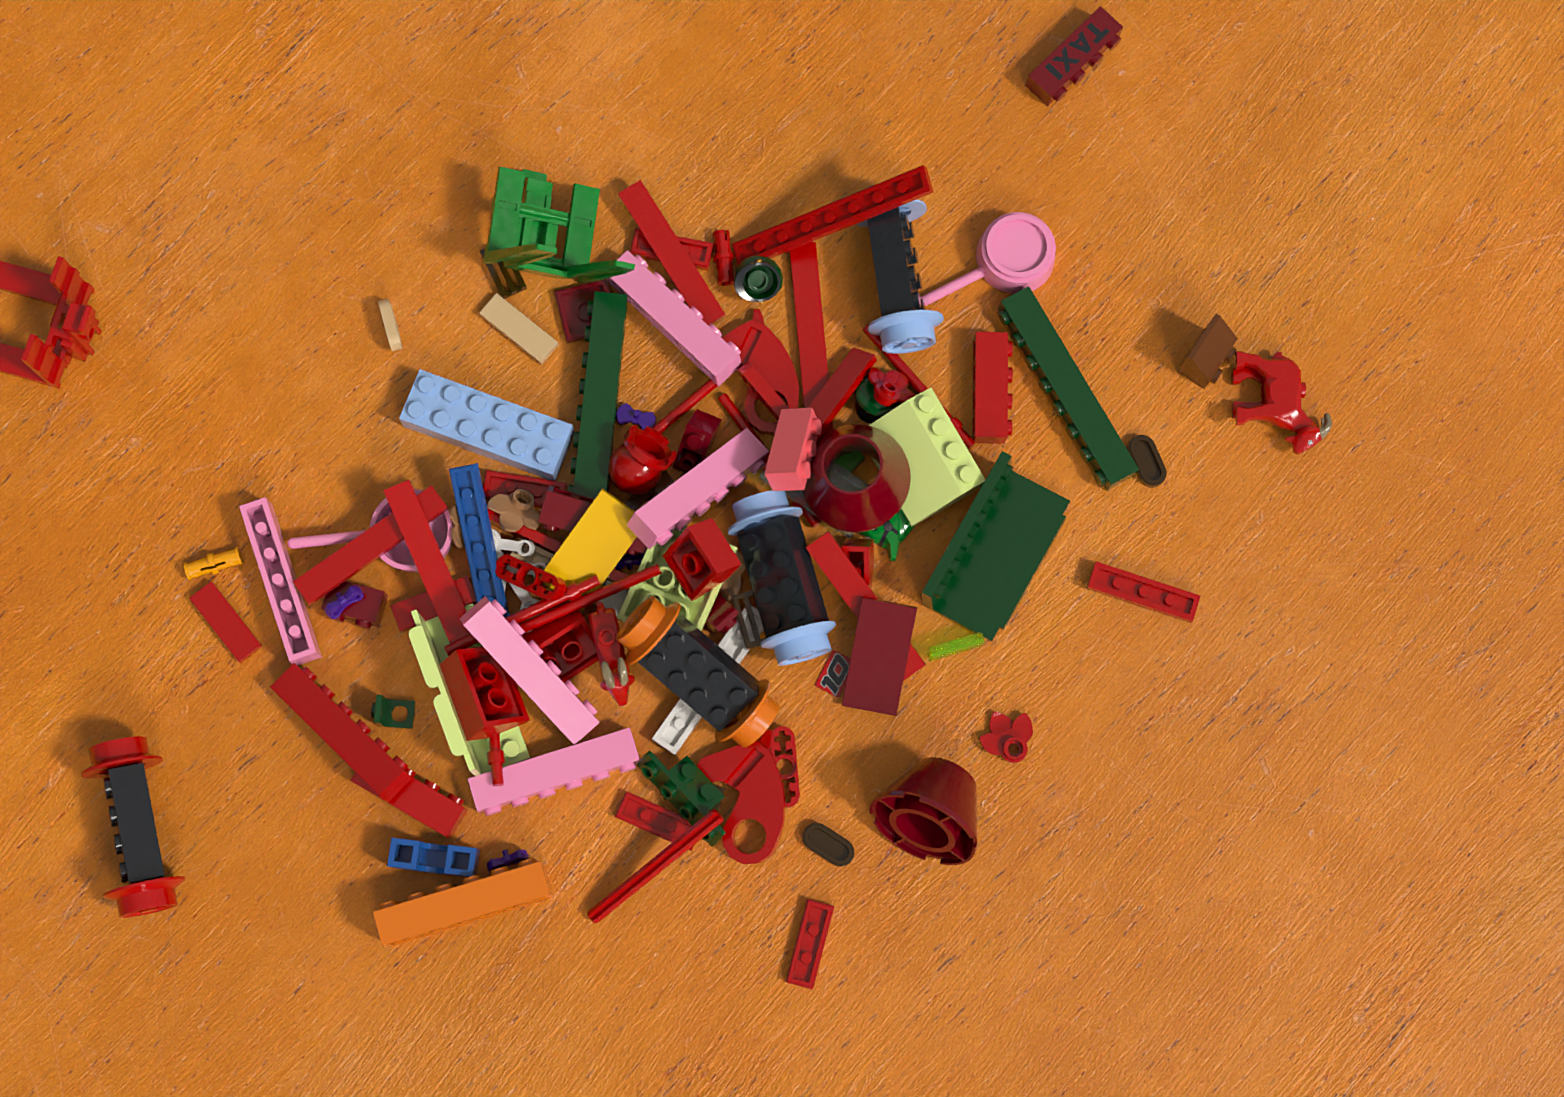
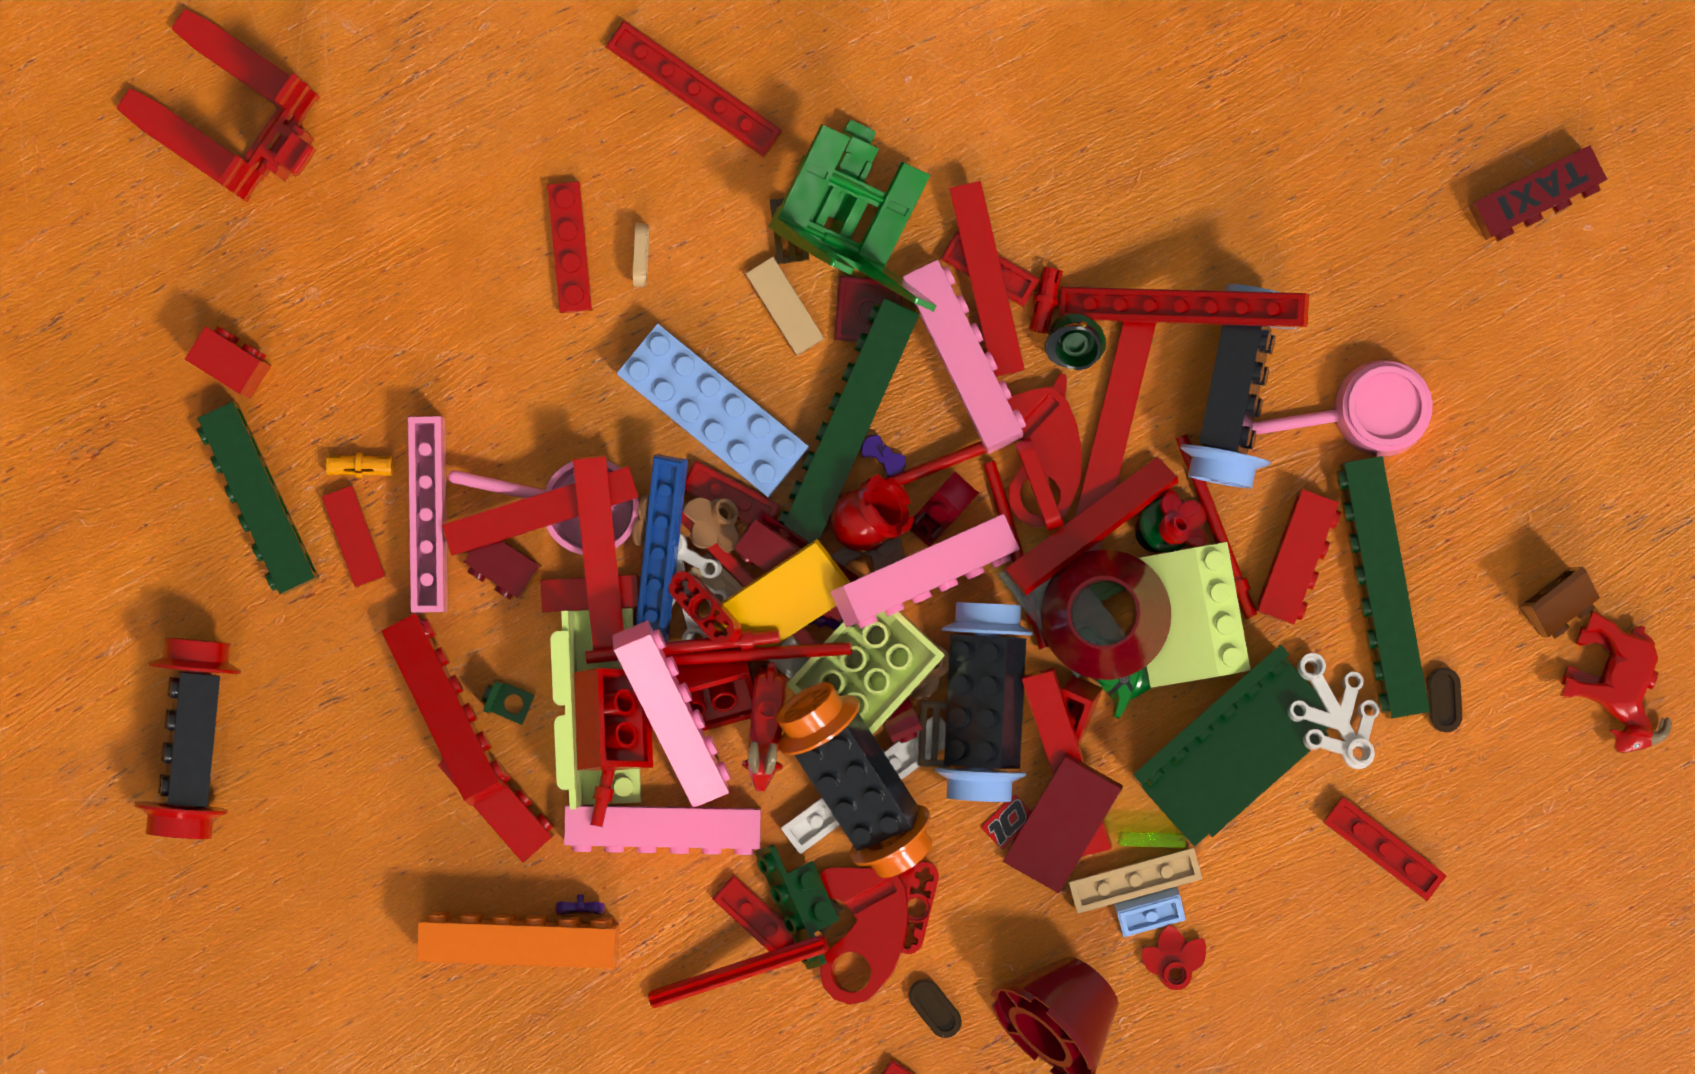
camera: 25 degrees right, 10 degrees up
(78, 512) = (226, 361): none -> red brick
(136, 615) = (257, 497): none -> dark green brick
(332, 339) = (570, 247): none -> red plate
(336, 607) = (478, 570): dark purple piece -> none
(392, 188) = (693, 89): none -> red tile
(433, 858) = (501, 878): blue arch -> none
(701, 558) = (901, 656): red slope -> none
(793, 449) = (1045, 565): coral brick -> none
(954, 684) = (1135, 880): none -> tan plate
(974, 705) = (1150, 911): none -> light blue slope
(1066, 499) = (1337, 715): none -> white plant

